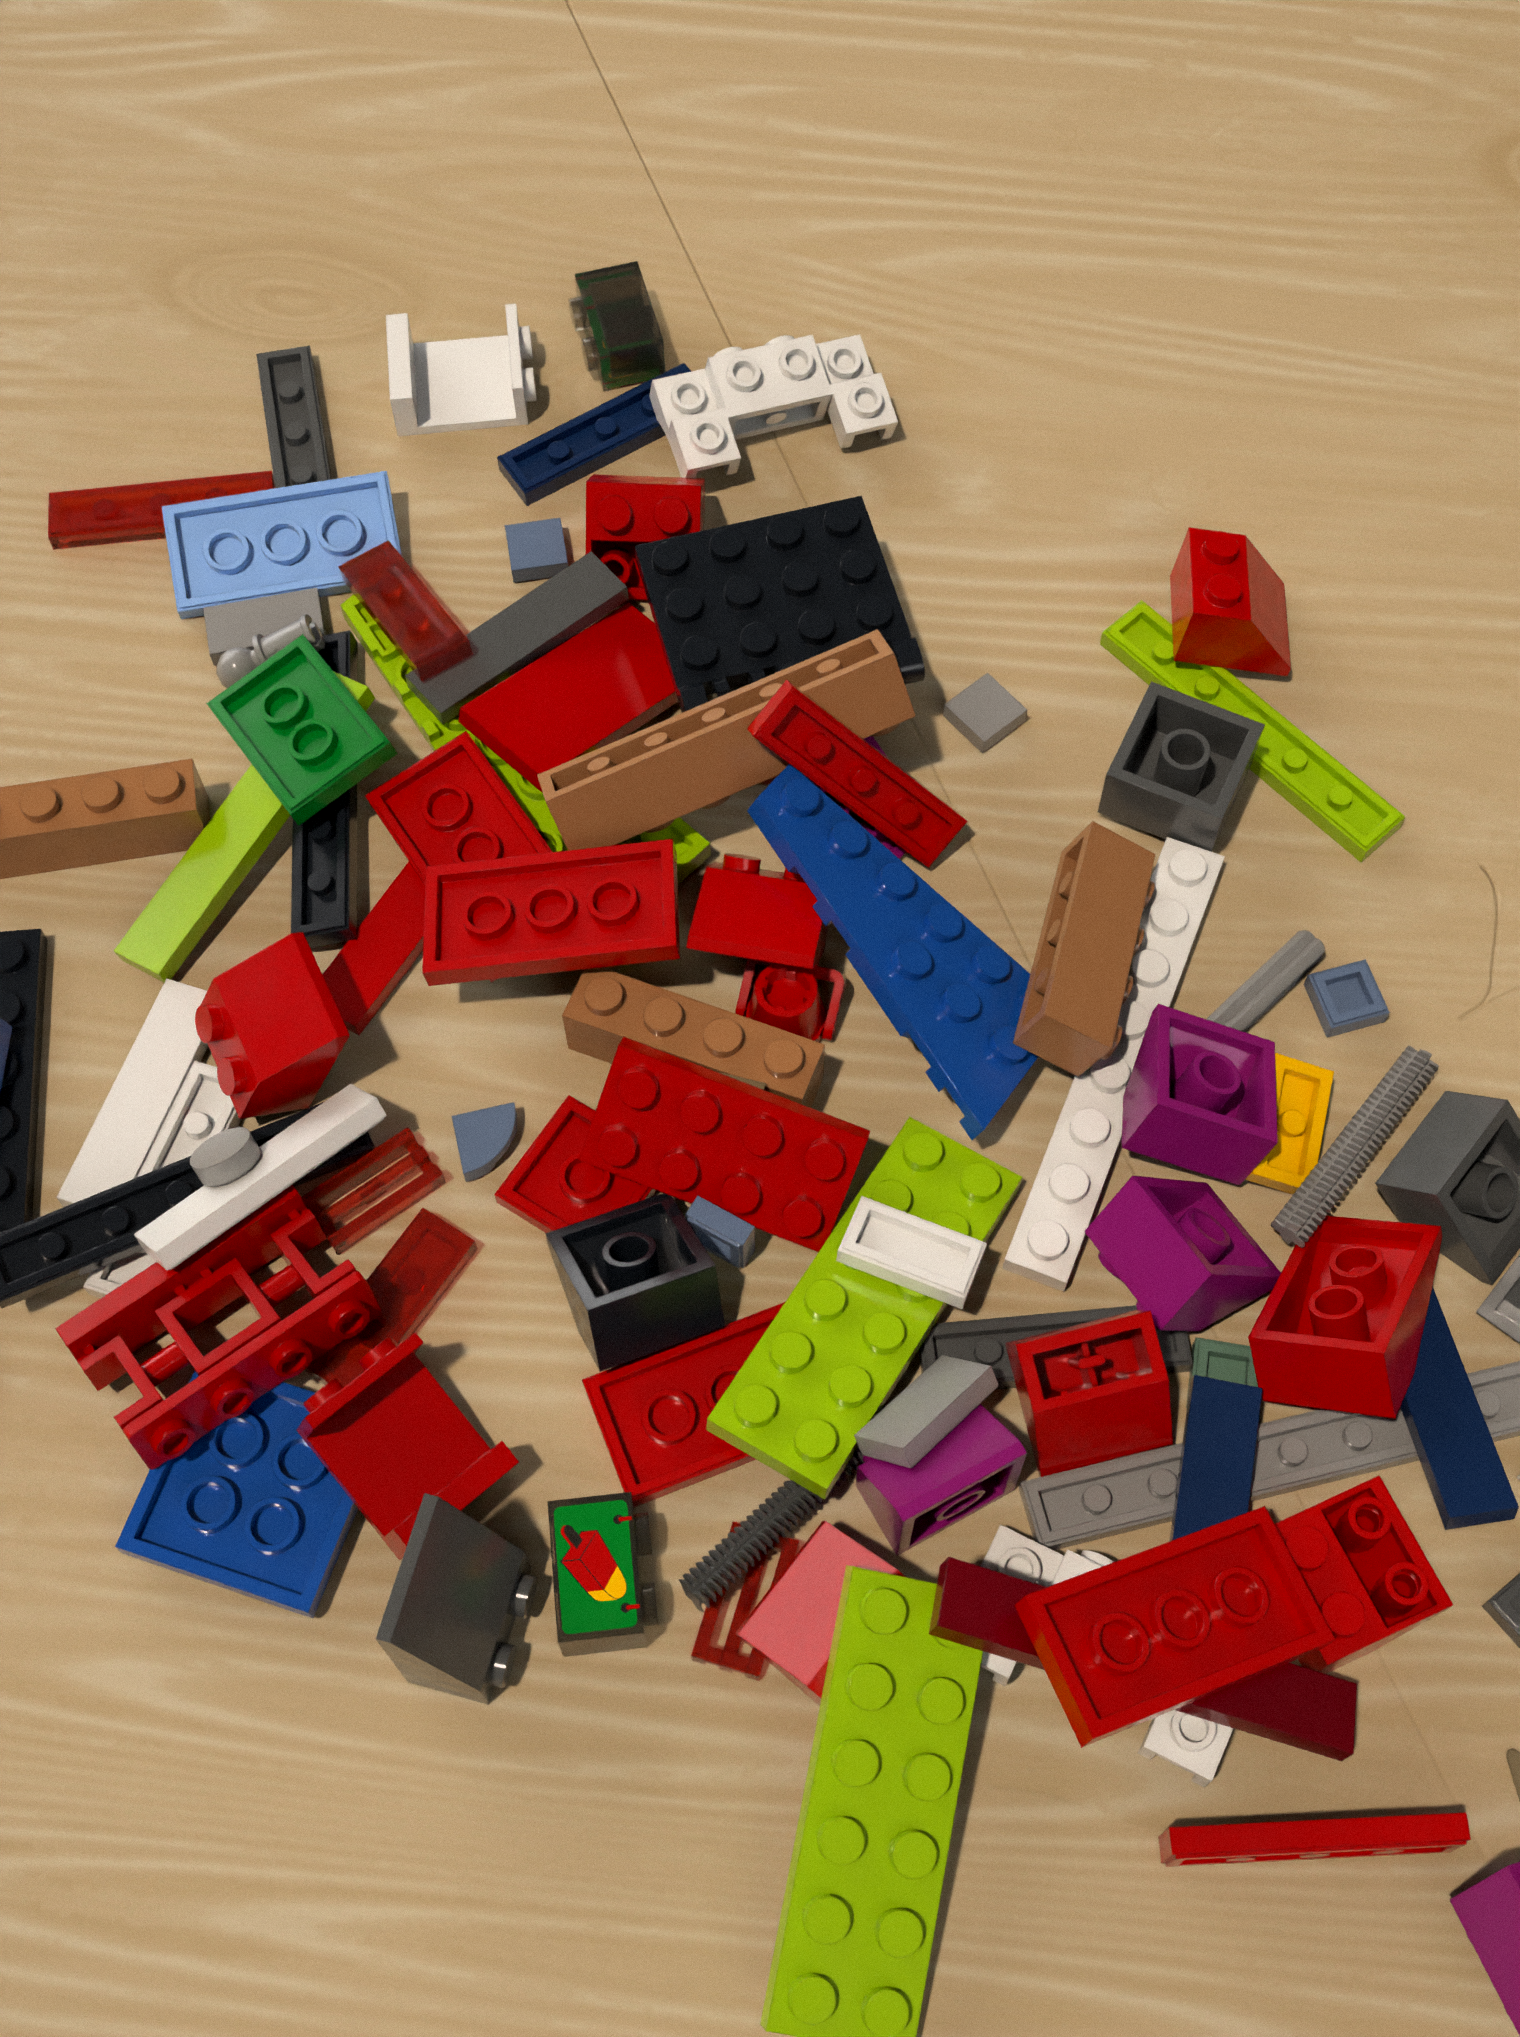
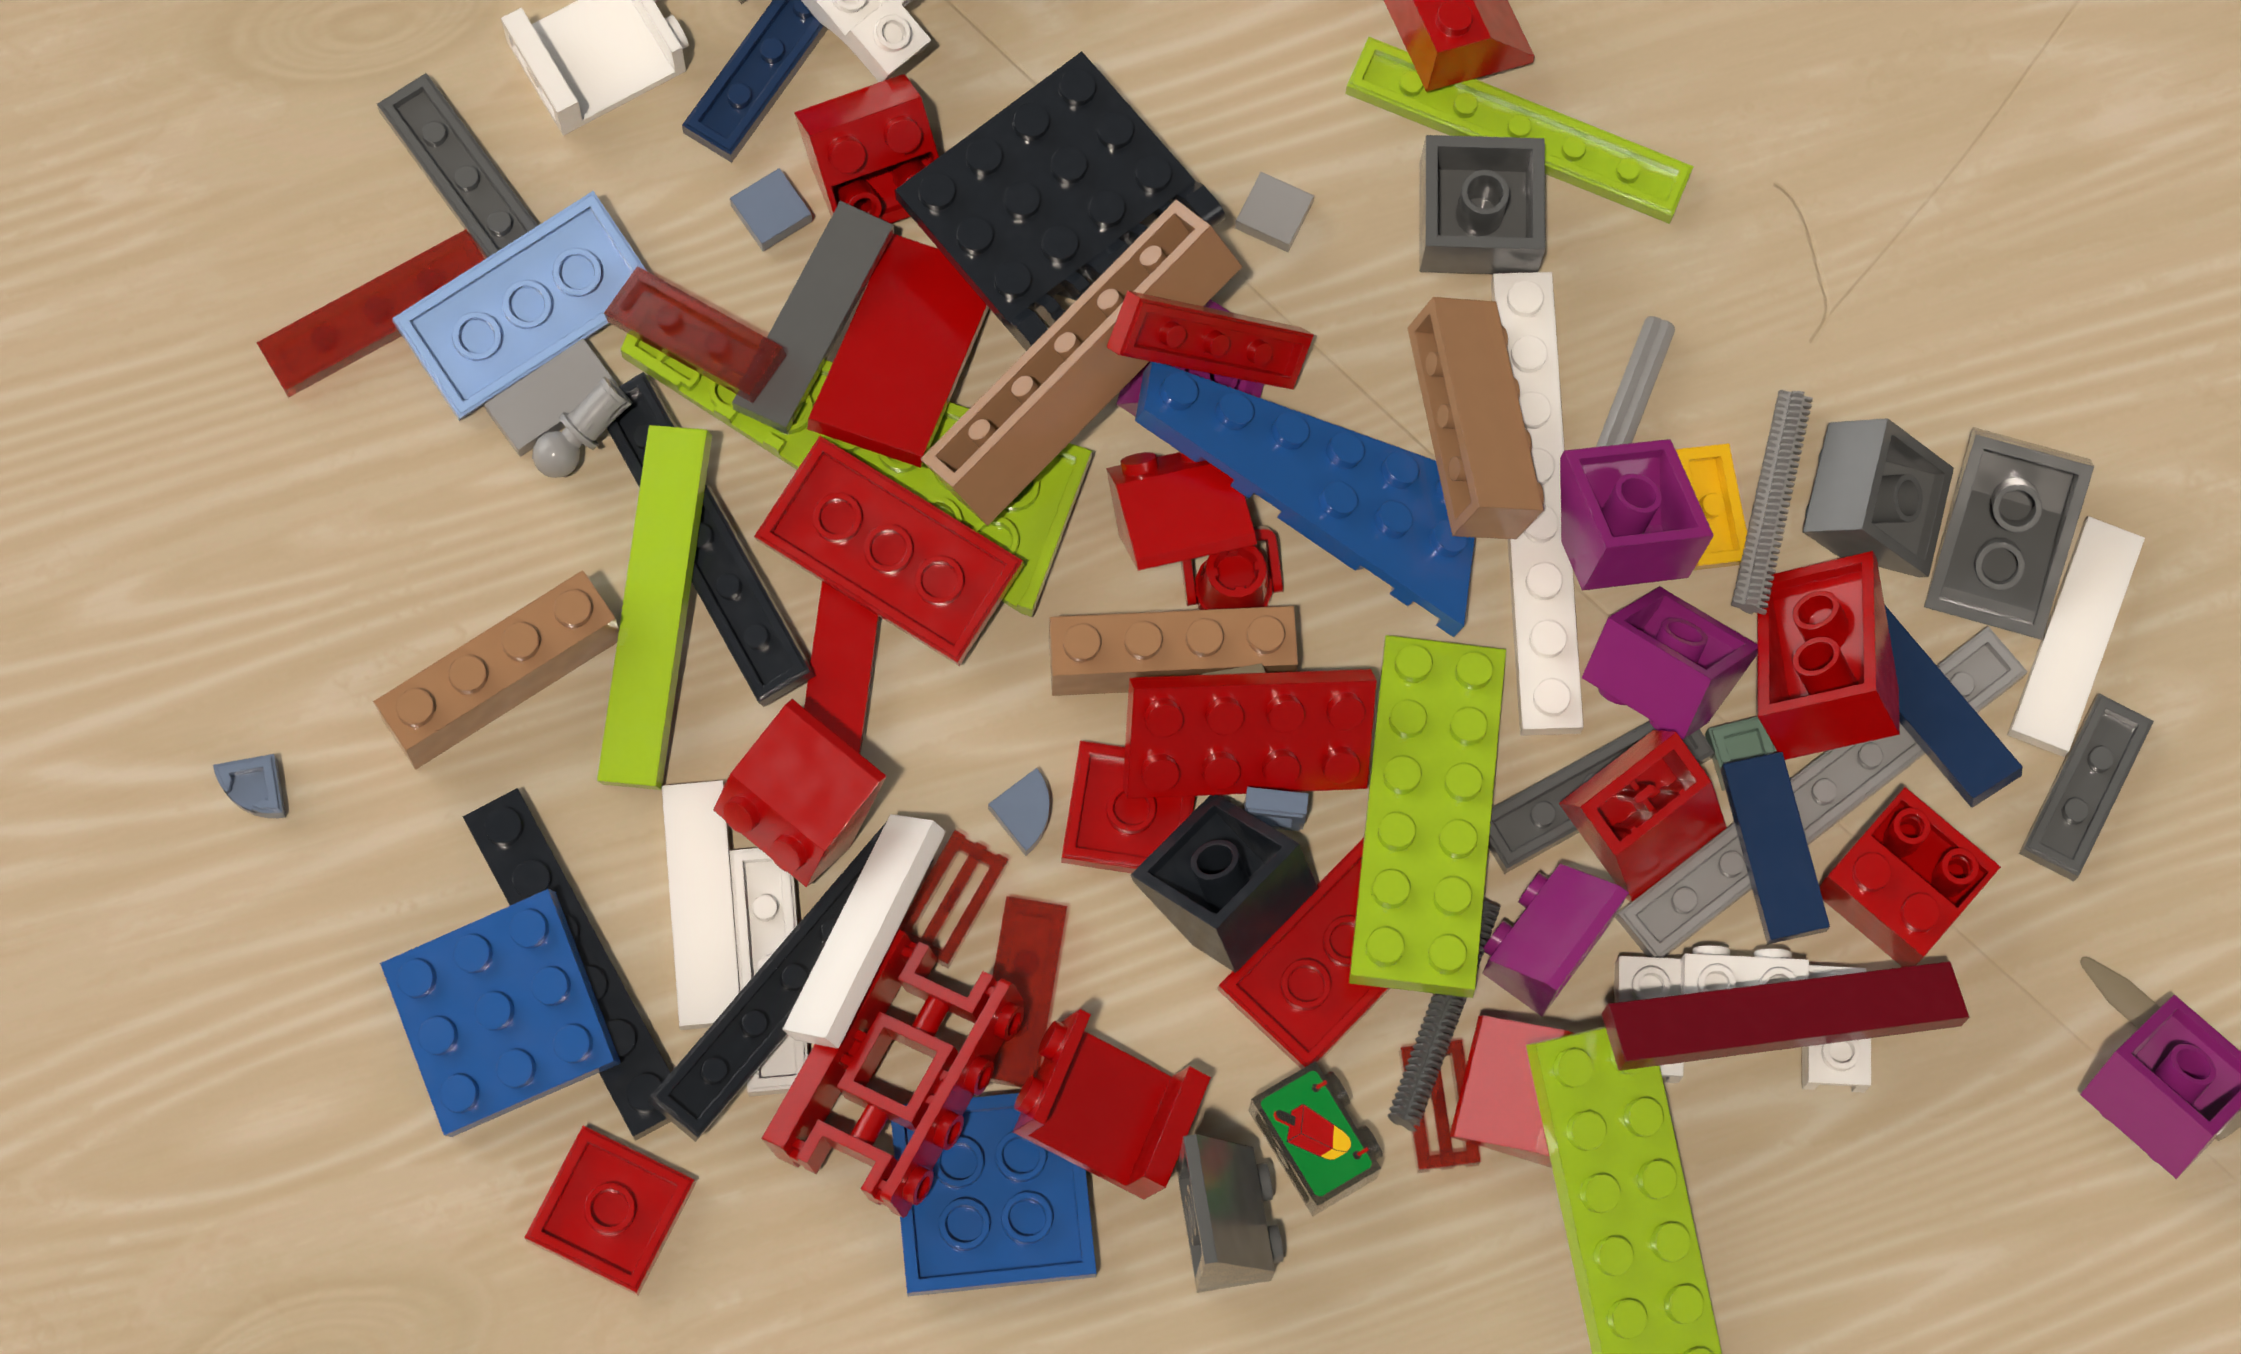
camera: 30 degrees left, 10 degrees up
(225, 1157) = (826, 928): light grey tile -> none
(301, 729) = (666, 497): green tile -> none
(551, 912) = (999, 585): red plate -> none
(911, 1252) = (1451, 760): white tile -> none
(926, 1411) = (1524, 889): light grey tile -> none
(1172, 1625) = (1800, 978): red plate -> none
(1313, 1839) = (1961, 1095): red tile -> none
(1346, 998) = (1709, 364): sand blue tile -> none

